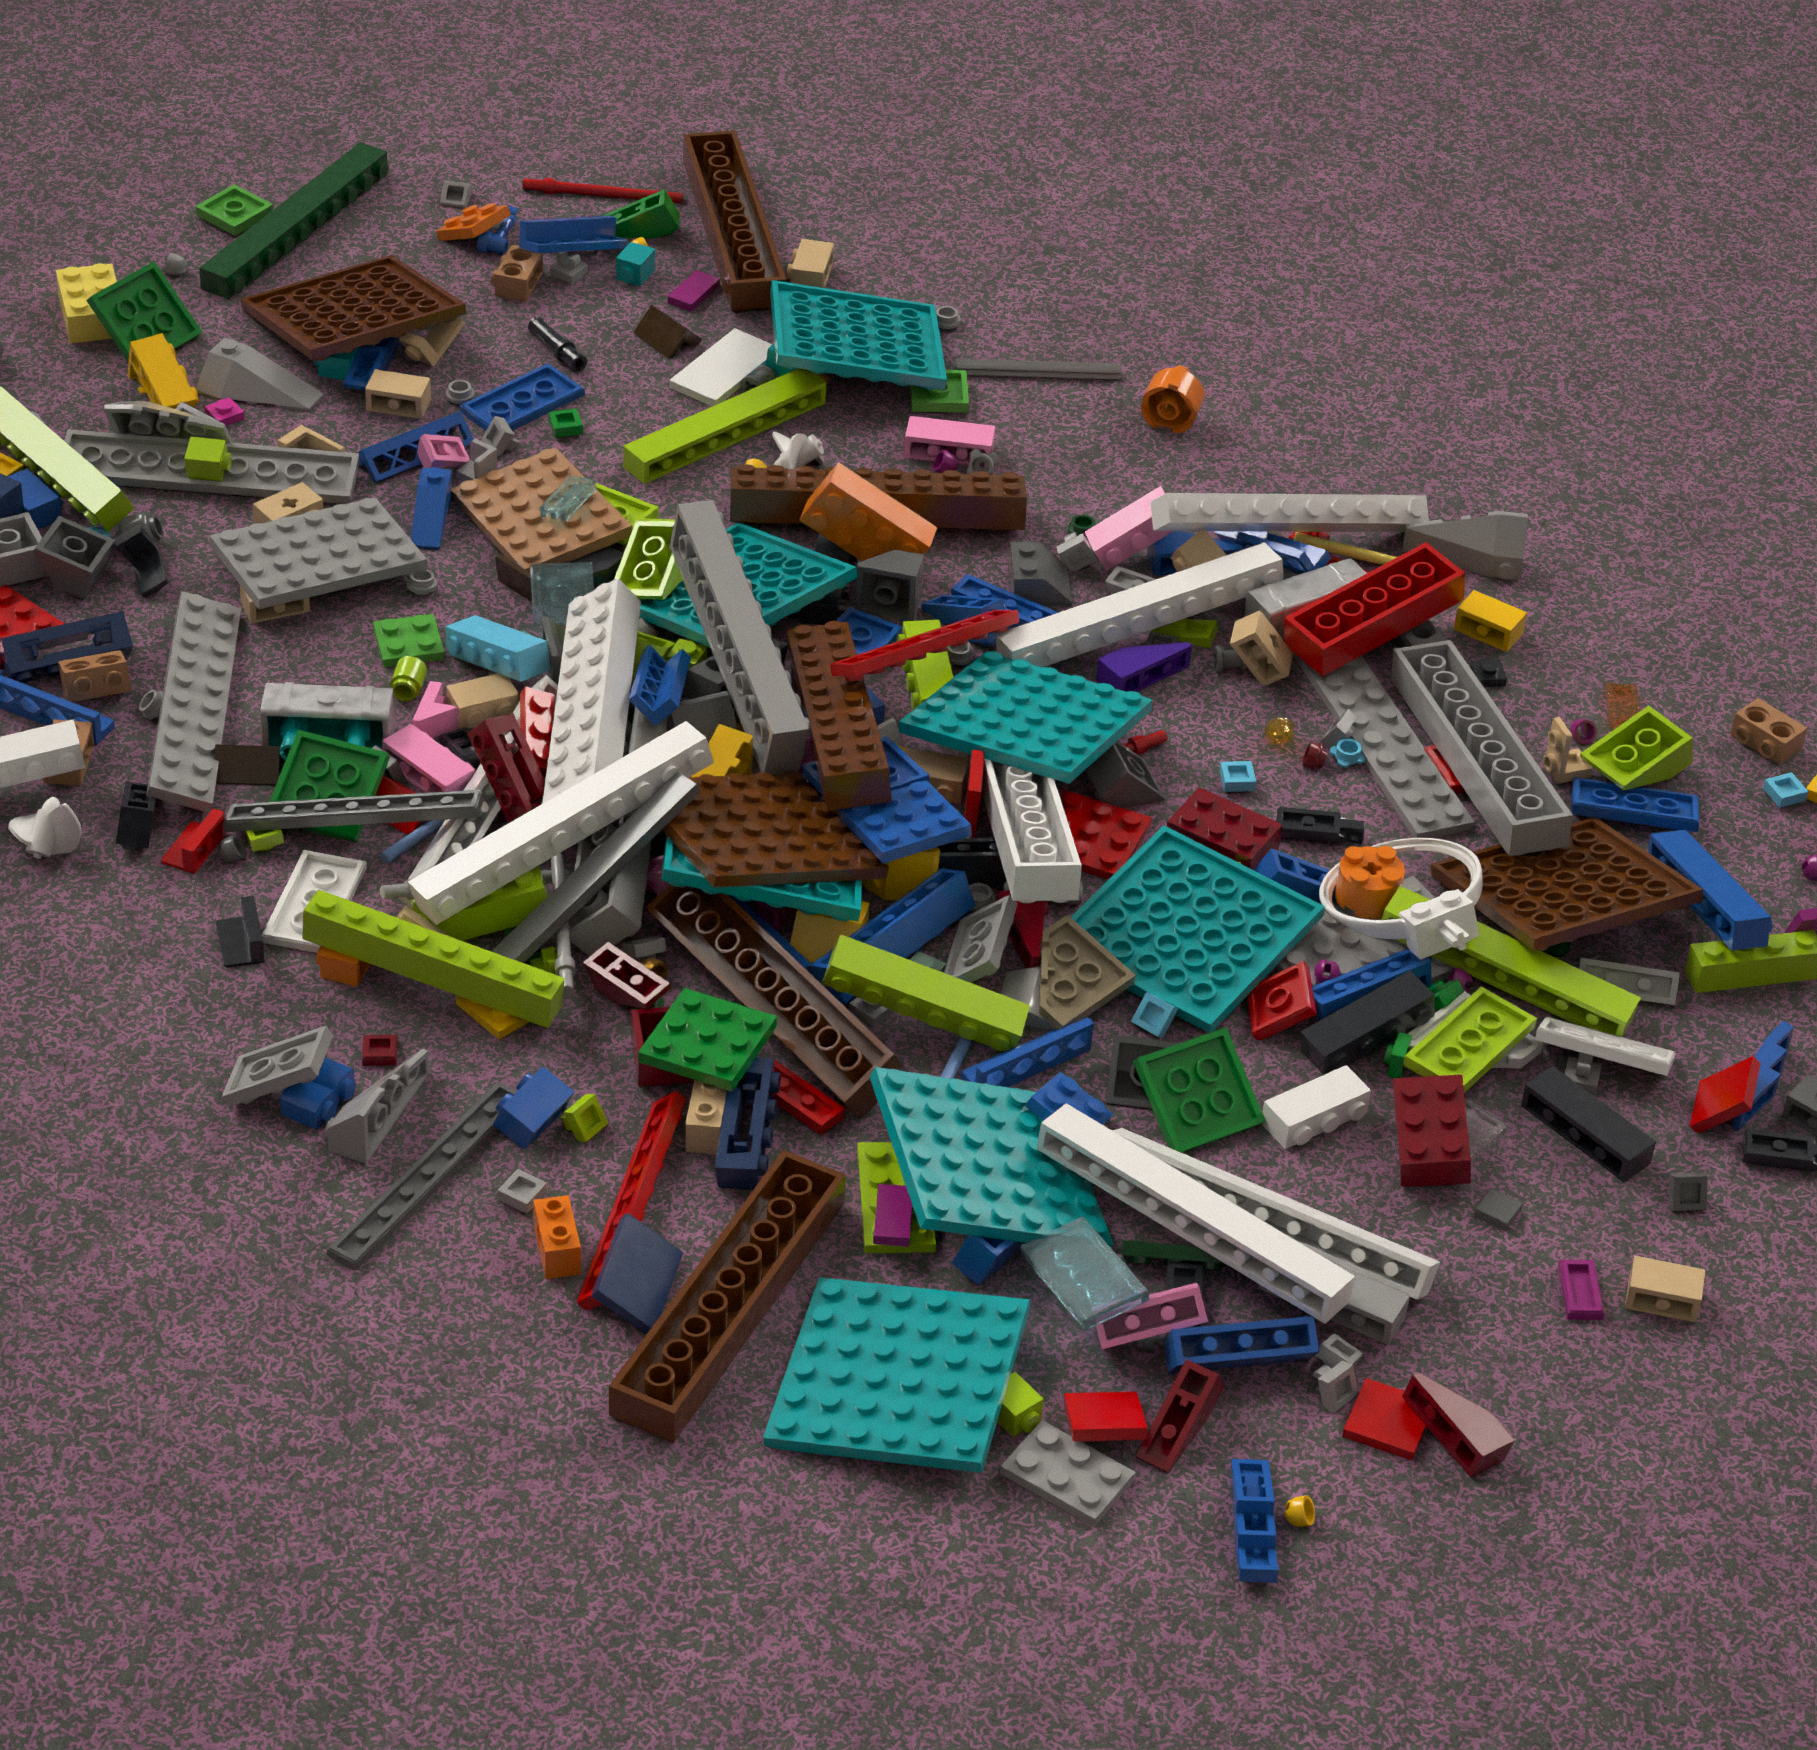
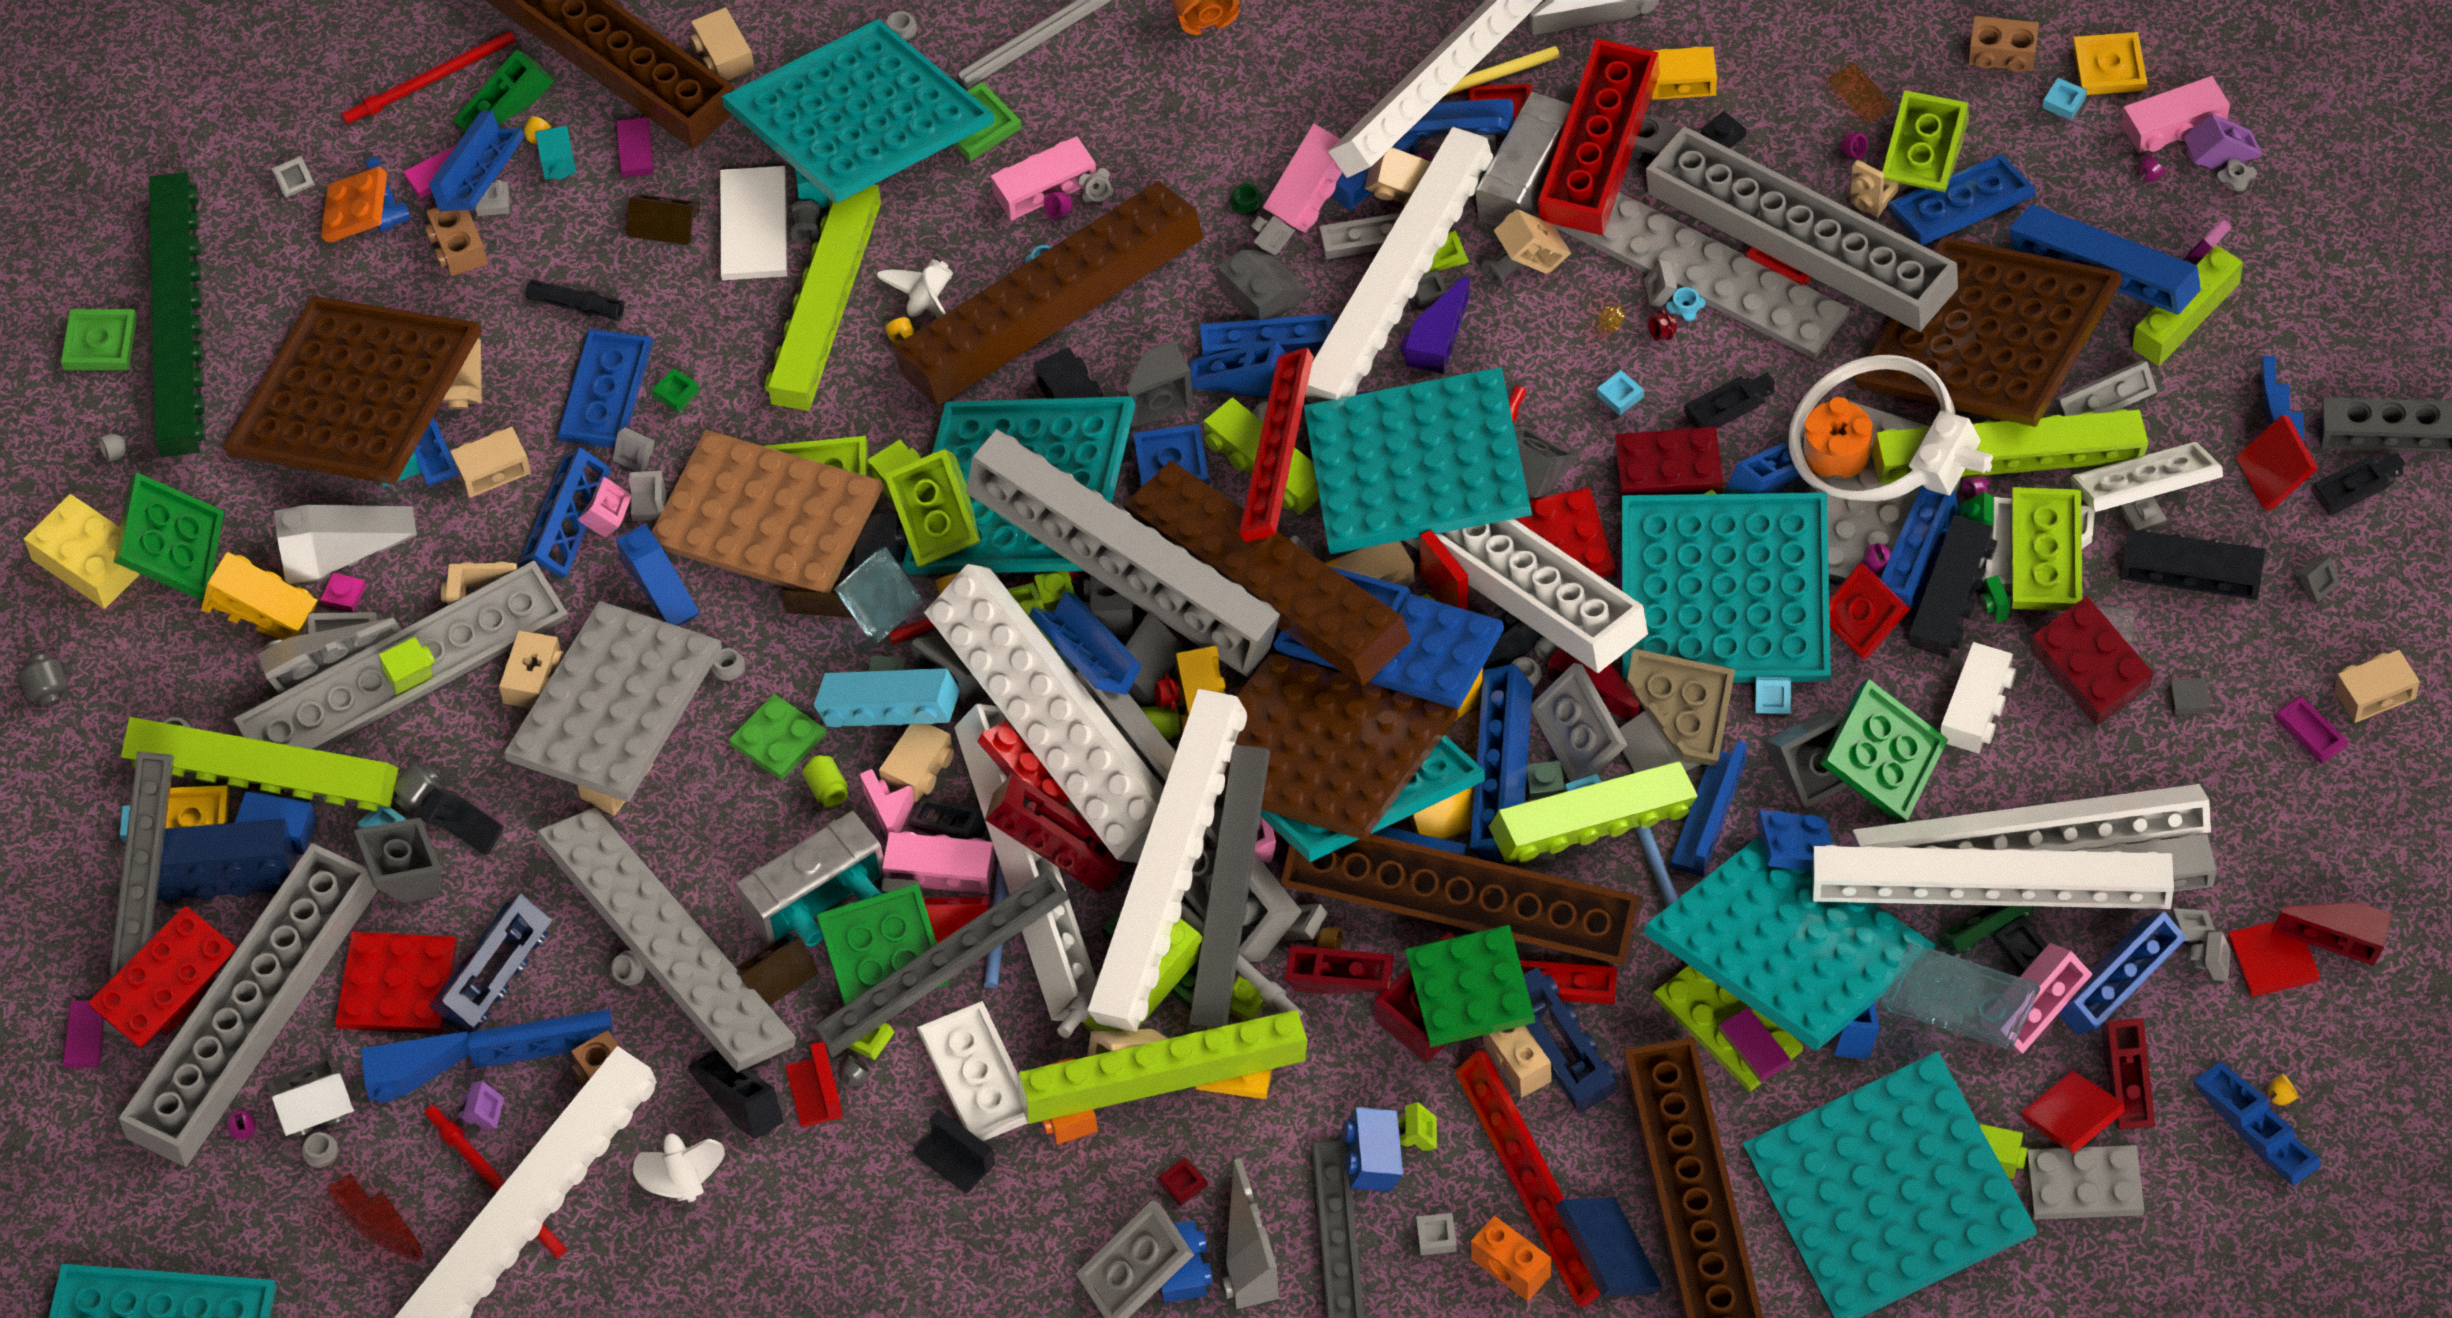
camera: 30 degrees left, 15 degrees up
(94, 676) = (549, 976): medium nougat brick -> none
(459, 392) = (541, 420): light grey plate -> none
(568, 500) = (795, 509): clear light blue tile -> none
(864, 517) = (1089, 336): orange brick -> none

